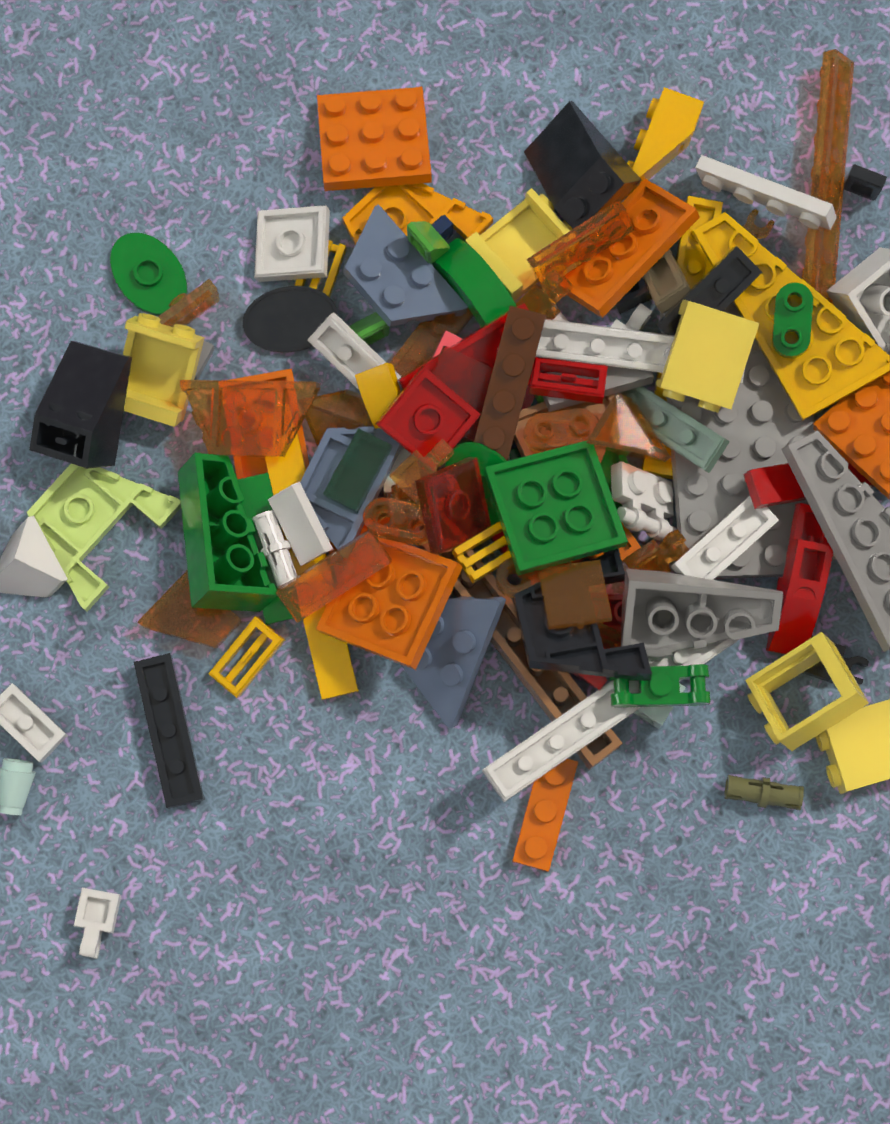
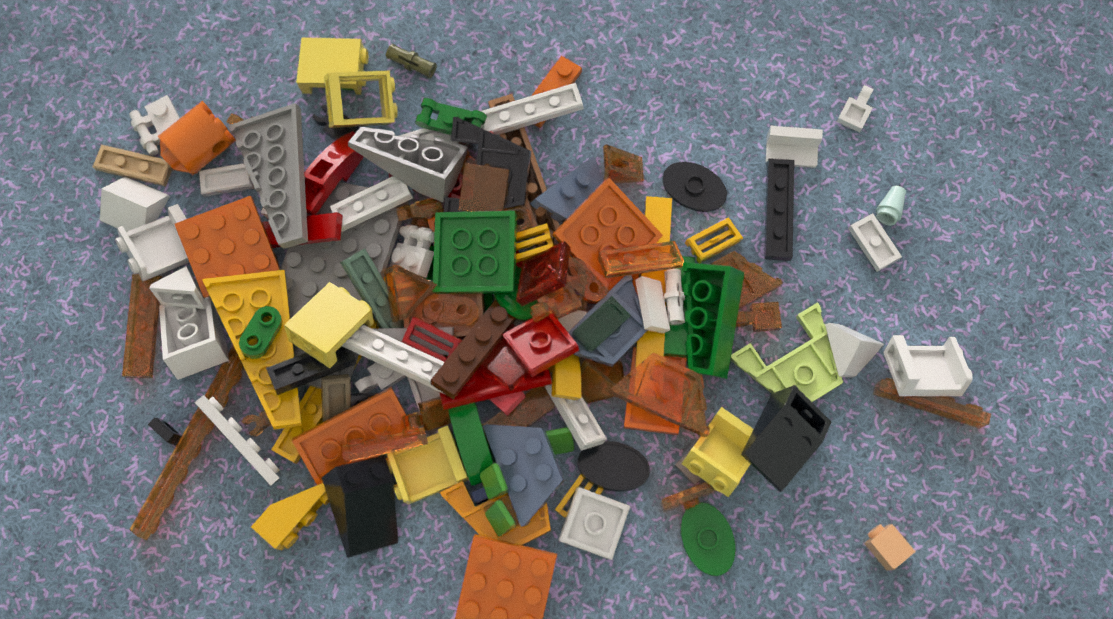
camera: 155 degrees left, 5 degrees down
(153, 569) = (761, 316): none -> clear orange plate
(173, 830) = (794, 144): none -> white panel
(296, 731) = (694, 186): none -> black piece
(404, 207) = (500, 518): none -> bright green slope
(404, 722) = (621, 165): none -> clear orange slope

